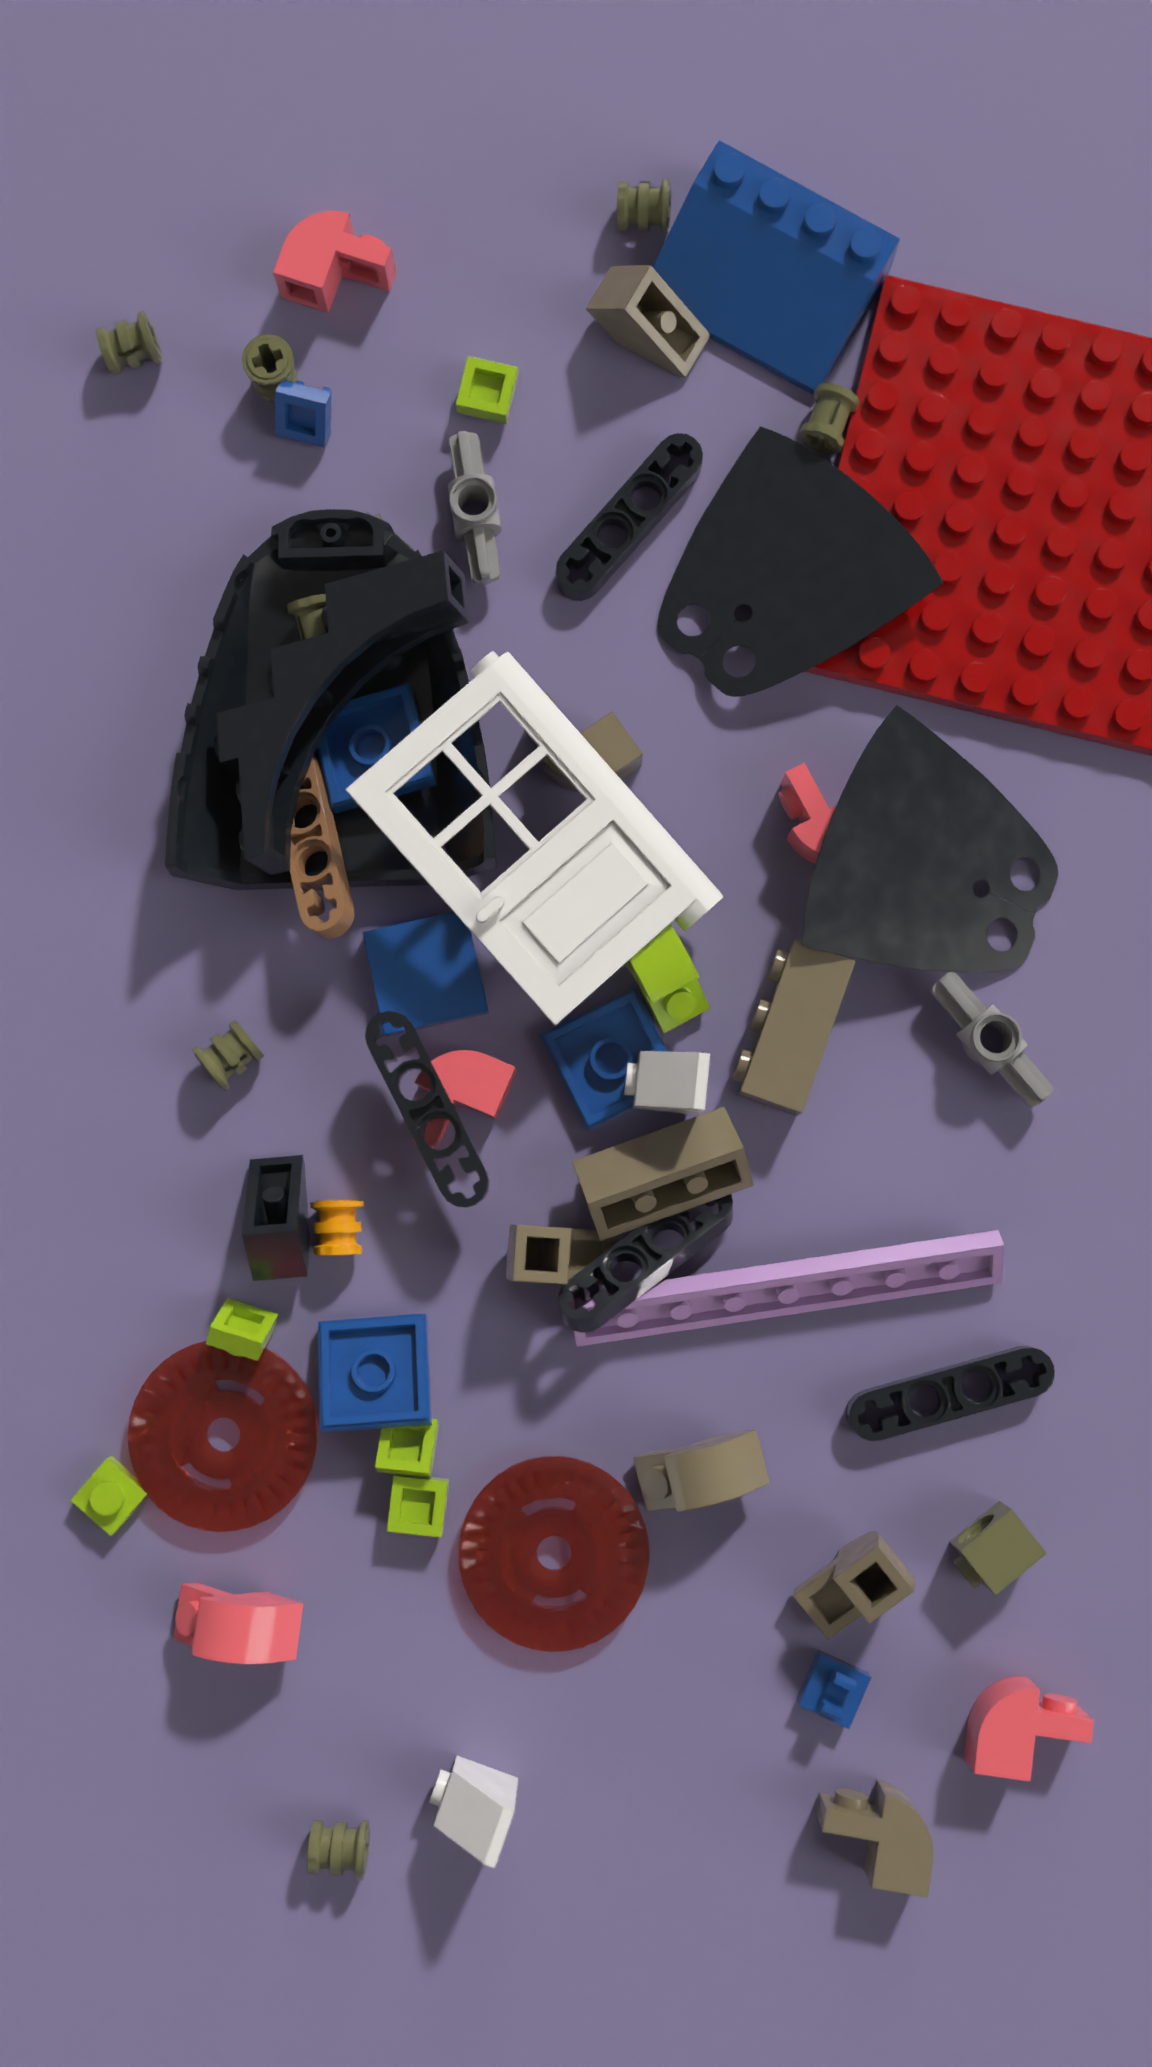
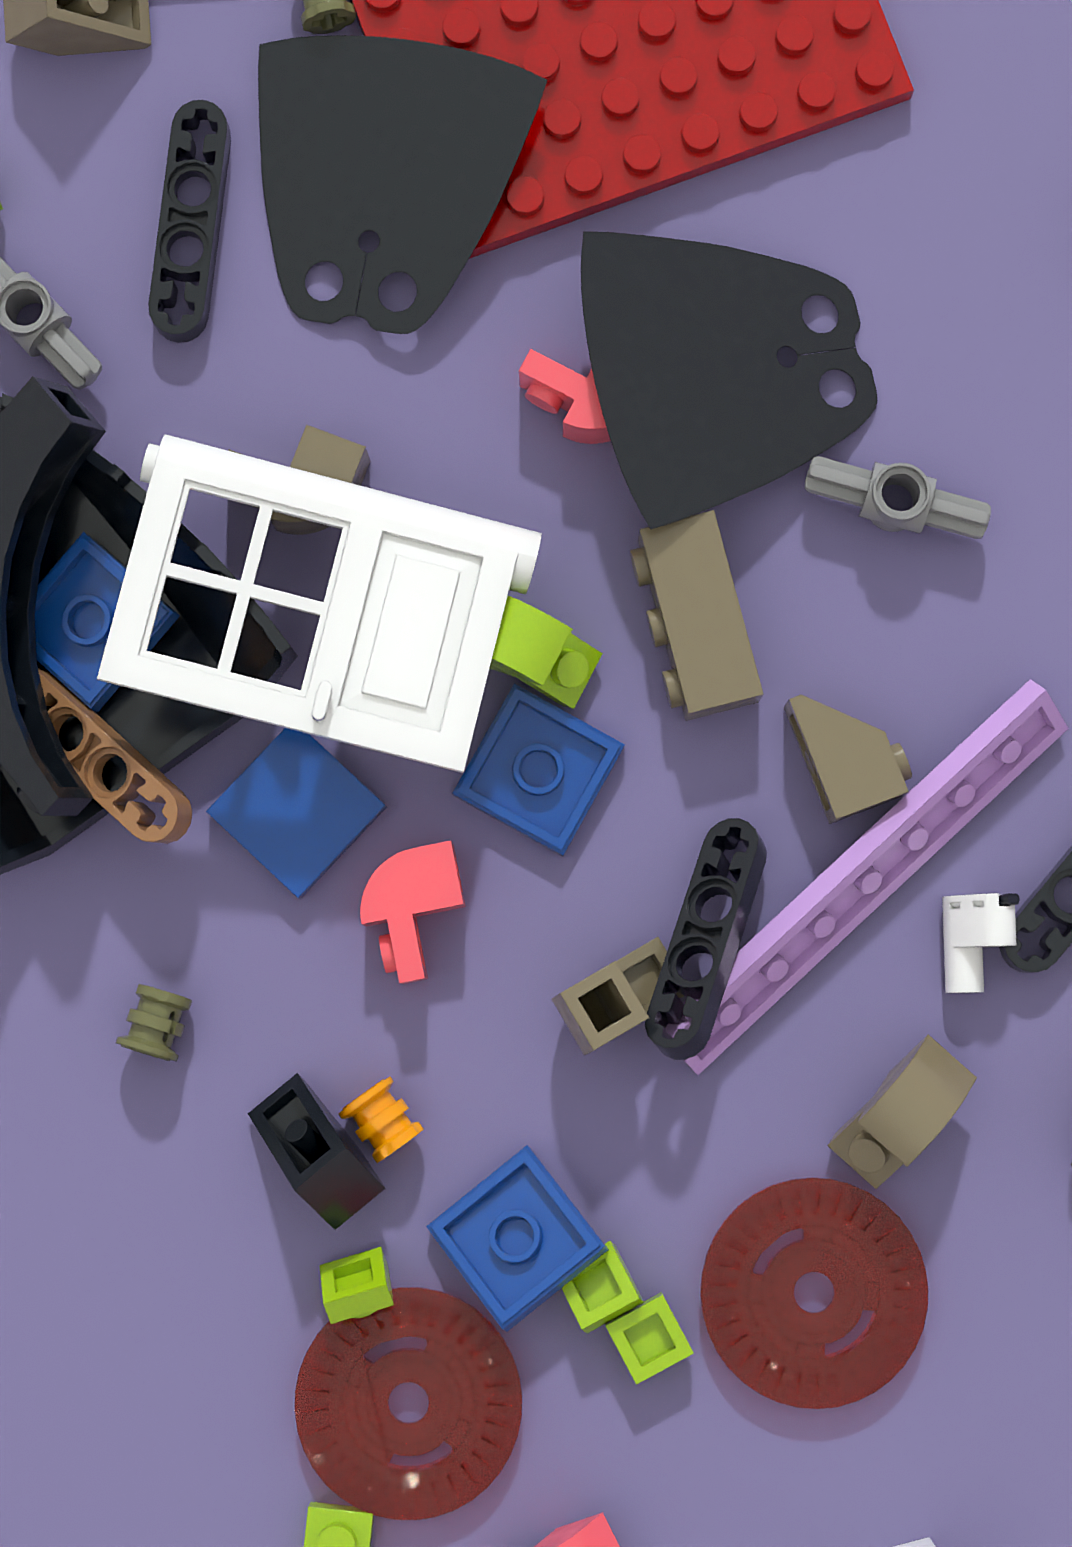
camera: 30 degrees left, 0 degrees up
(421, 1112) = (396, 935): black beam -> none
(663, 1173) = (667, 846): dark tan brick -> none
(669, 1081) = (612, 751): white slope -> none
(831, 1198) = (847, 759): none -> dark tan slope
(836, 1373) = (969, 926): none -> white piece

